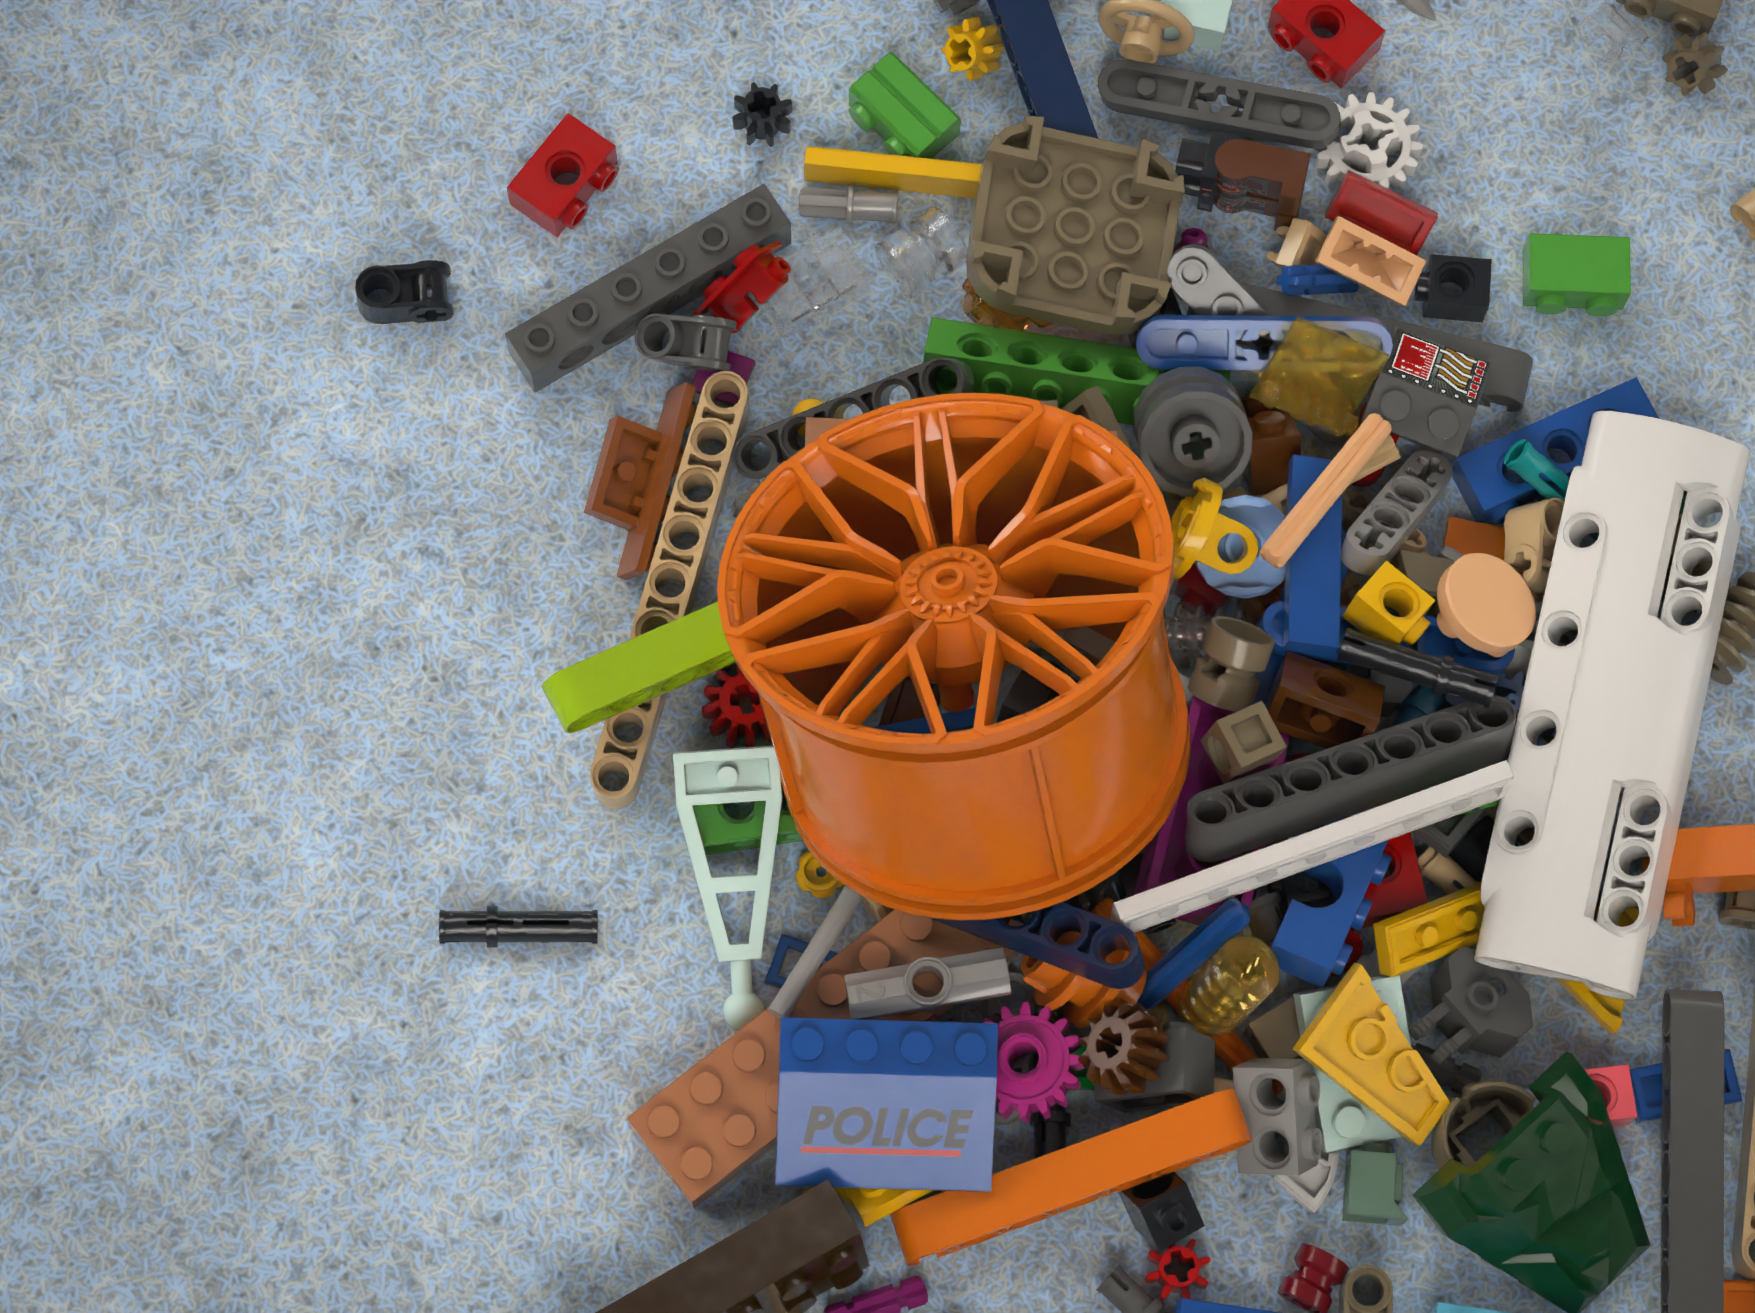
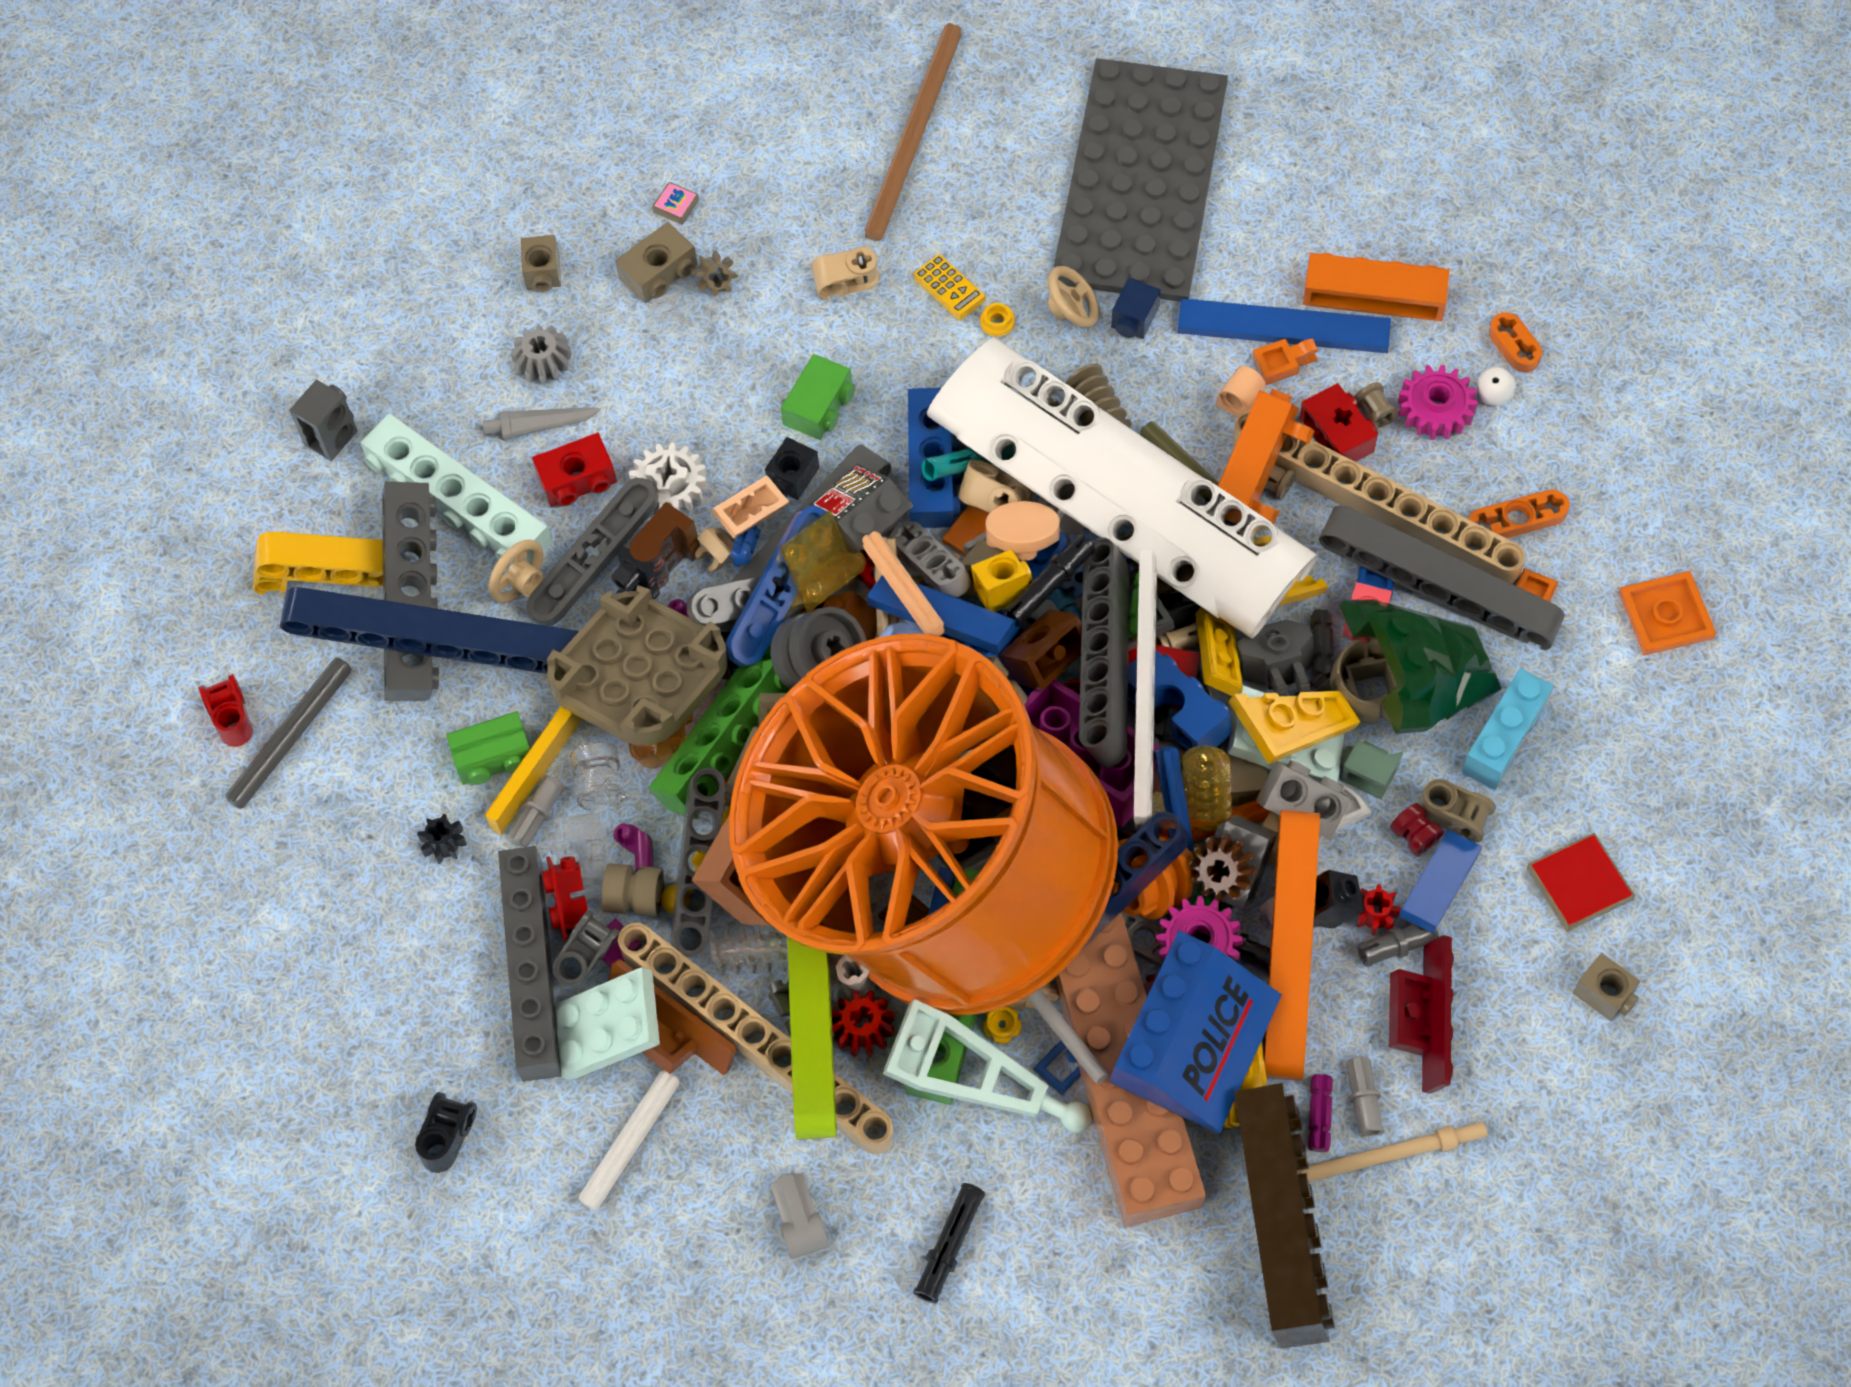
camera: 60 degrees left, 10 degrees down
(466, 746) = (801, 1224): none -> light grey piece
(487, 505) = (629, 1140): none -> white axle
(568, 149) = (403, 969): red brick -> none
(606, 410) = (607, 1024): none -> light aqua plate
(791, 354) = (632, 889): none -> dark tan wheel
(862, 343) = (637, 843): none -> magenta arm
(963, 979) = (1123, 990): light grey piece -> none
(973, 48) = (472, 674): yellow gear -> none
(1243, 743) = (1055, 699): dark tan brick -> none
(1382, 212) = (717, 488): red tile -> none
(1530, 1057) = (1322, 642): none -> dark grey axle
(1715, 764) = (1161, 439): none -> olive axle

